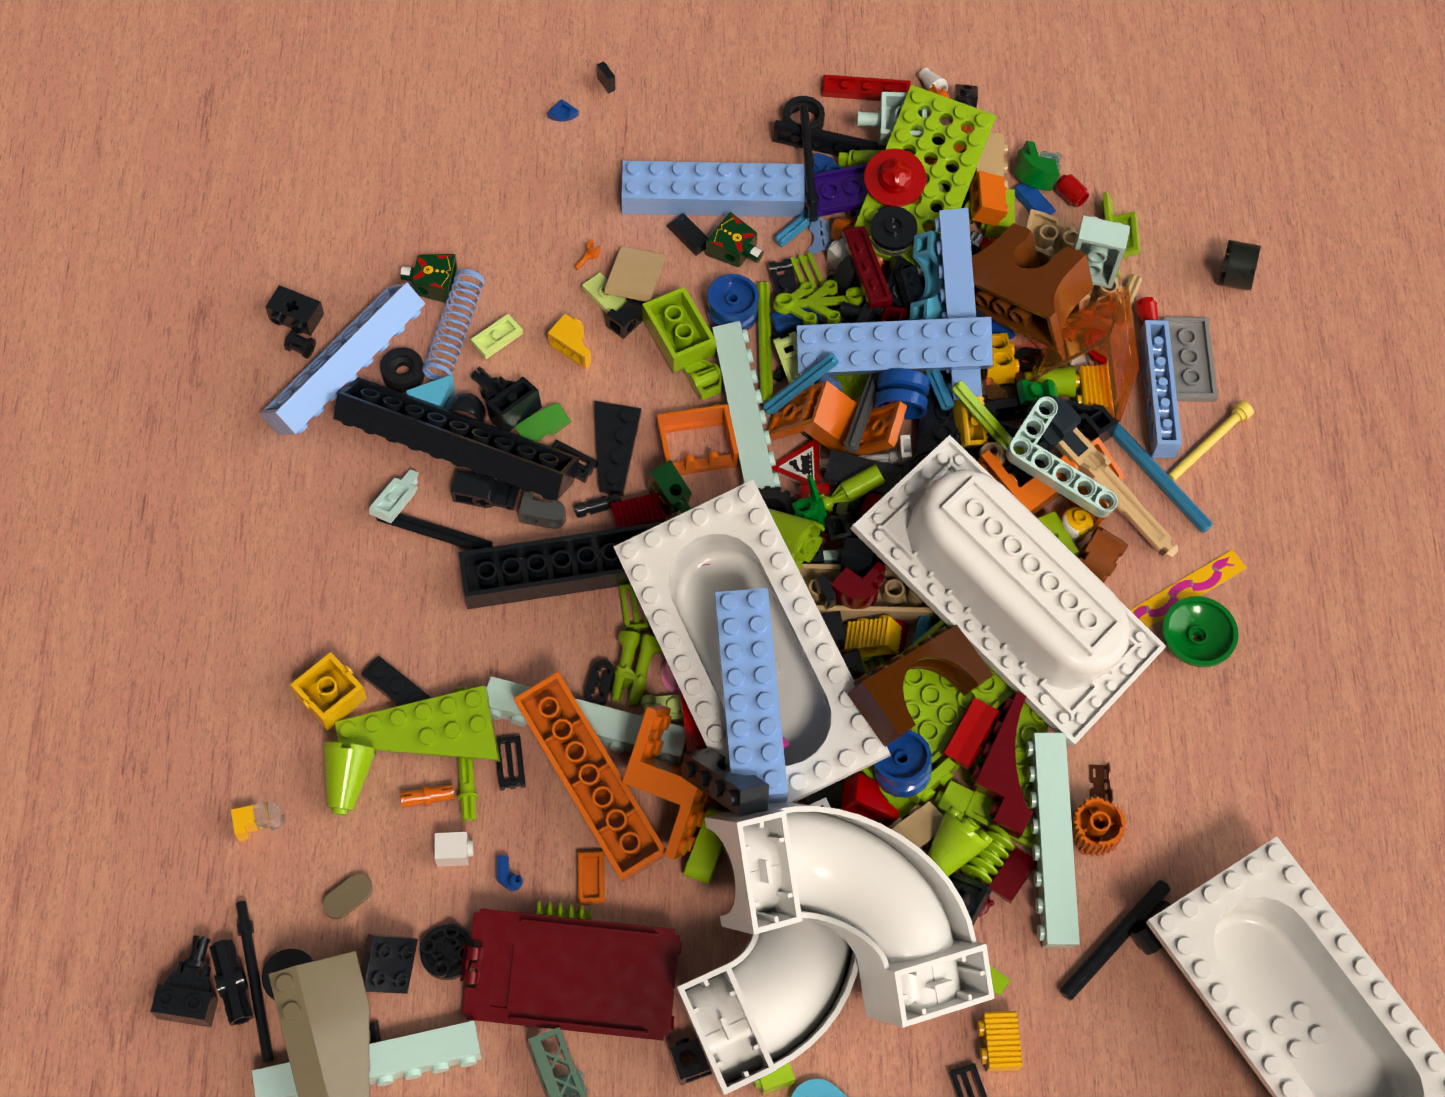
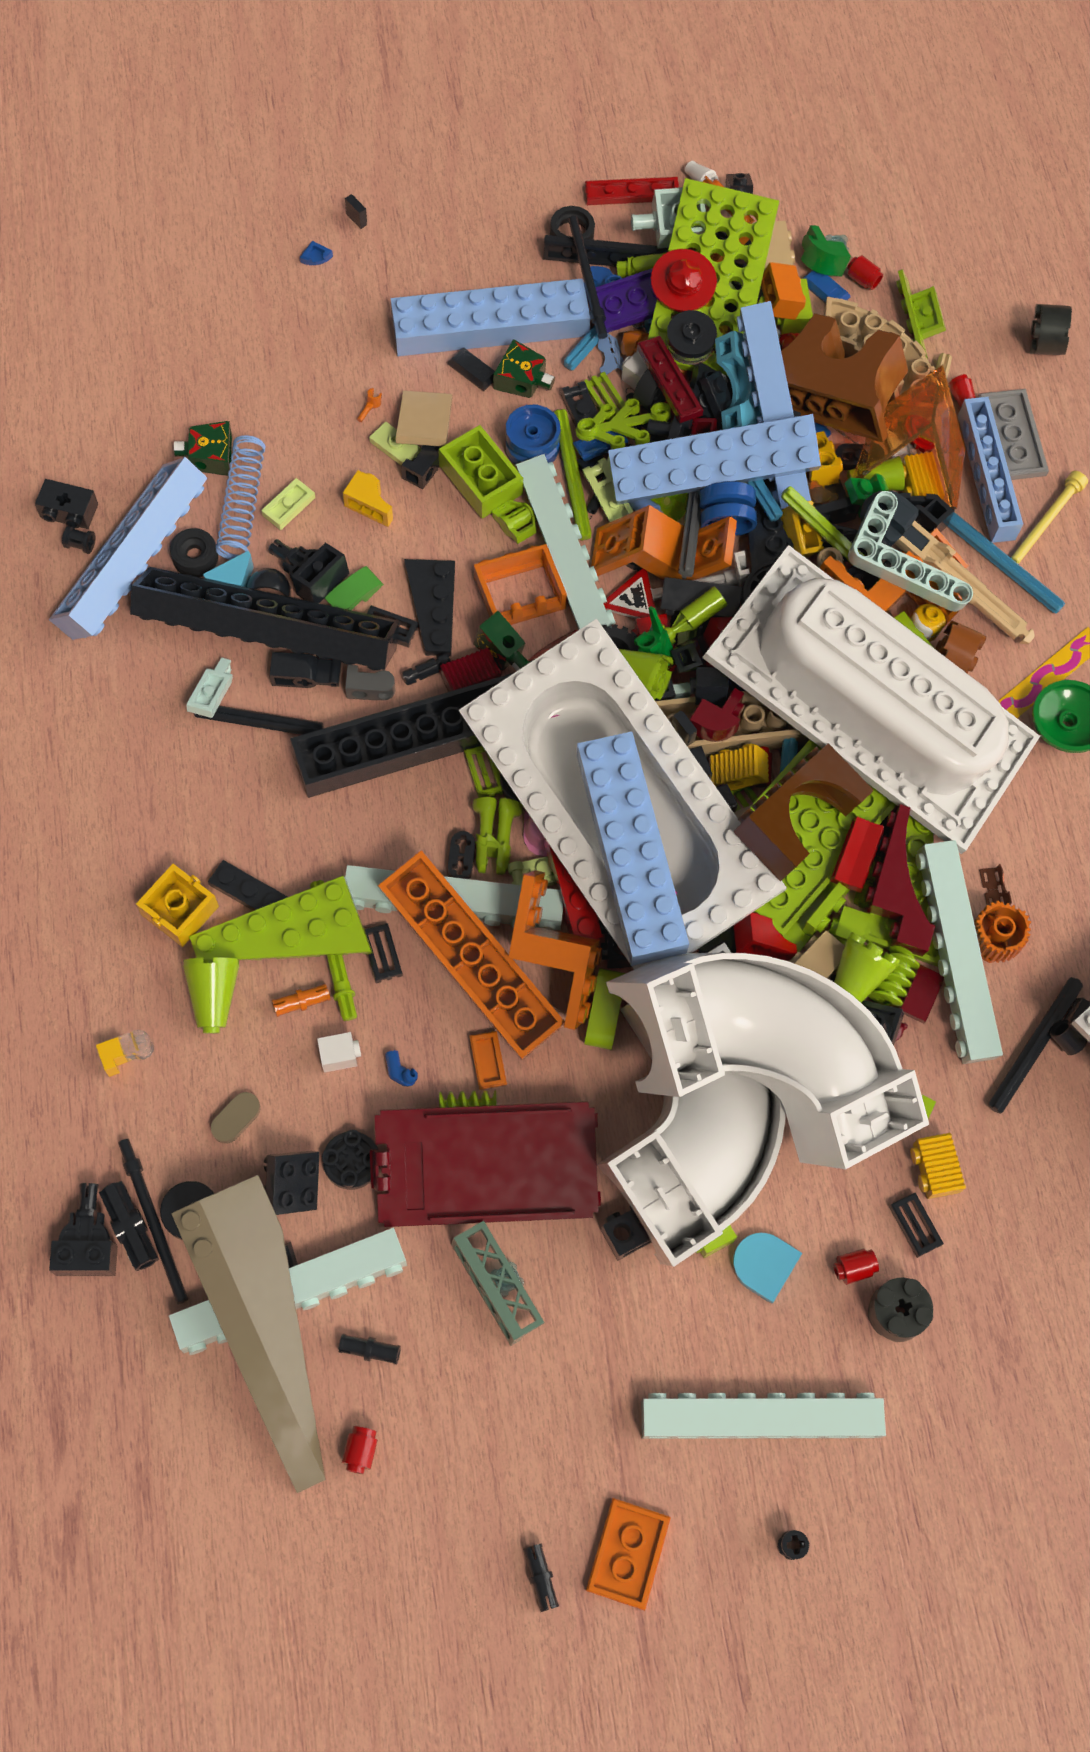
camera: 10 degrees left, 5 degrees up
(736, 792) = (638, 951): black arch -> none
(800, 383) = (621, 511): dark azure axle -> none
(907, 768) = (801, 902): blue wheel -> none
(1104, 247) = (916, 323): light aqua brick -> none

